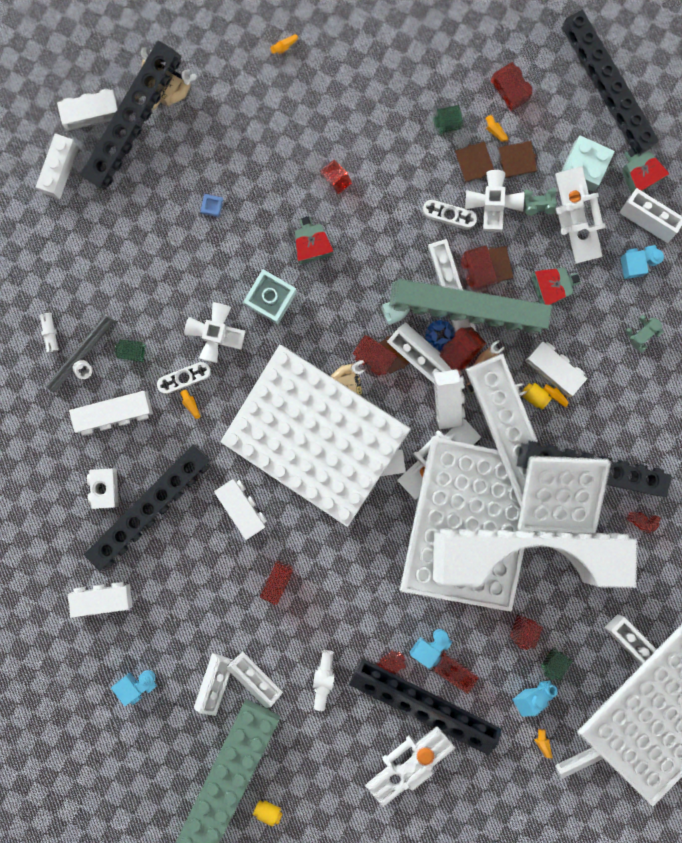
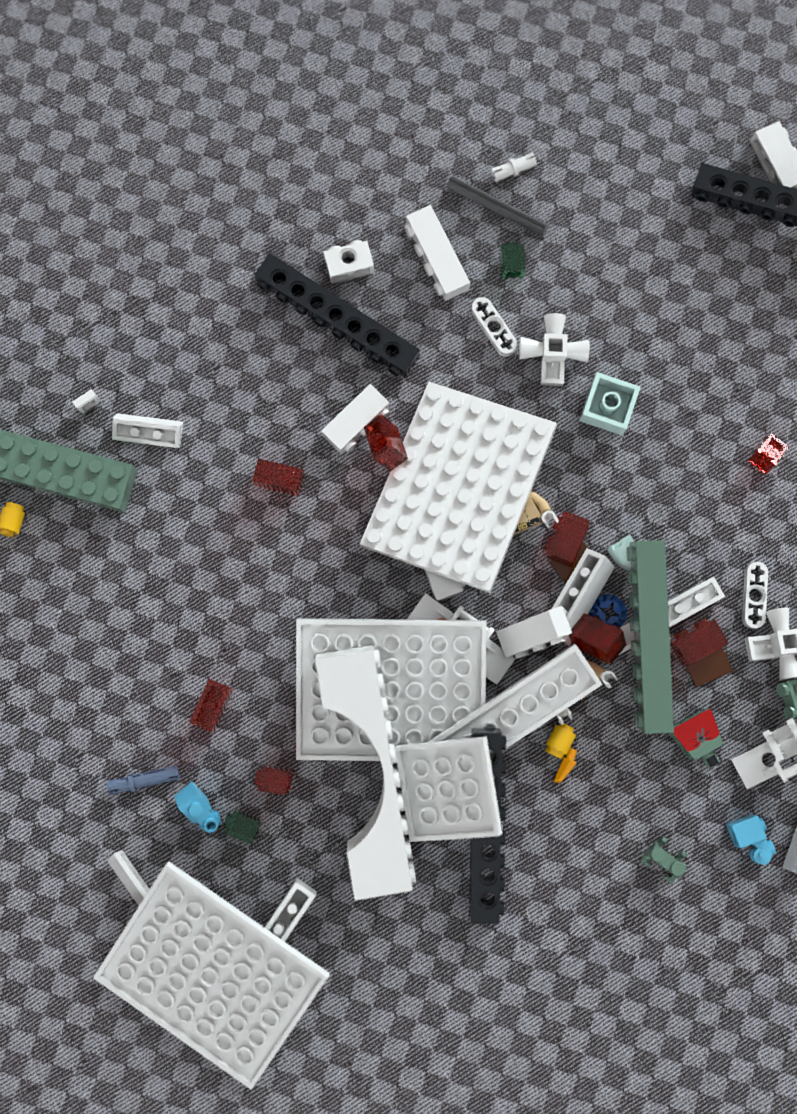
camera: 75 degrees right, 5 degrees down
(57, 166) = (706, 137): white brick -> none
(79, 365) = (475, 216): white bush -> none
(100, 599) = (221, 283): white brick -> none
(129, 689) = (125, 336): medium azure brick -> none
(179, 732) = (86, 401): none -> white tile
(189, 403) = (465, 339): light orange bar -> none
(211, 205) = (701, 318): medium blue tile -> none
(254, 680) = (160, 475): white slope -> none
(267, 488) = (385, 443): none -> clear red brick
(311, 242) = (684, 439): torso -> none
(323, 680) = (174, 553): white pin -> none
(392, 662) = (208, 630): clear red bracket -> none
(415, 770) = (87, 679): white piece -> none
(425, 707) = (165, 678): black brick -> none
(429, 653) = (228, 669): medium azure brick -> none
(504, 743) = (134, 782): none -> sand blue pin
(543, 743) = (145, 830): light orange bar -> none
(556, 369) = (598, 758): white brick -> none
(641, 522) = (435, 897): clear red bracket -> none

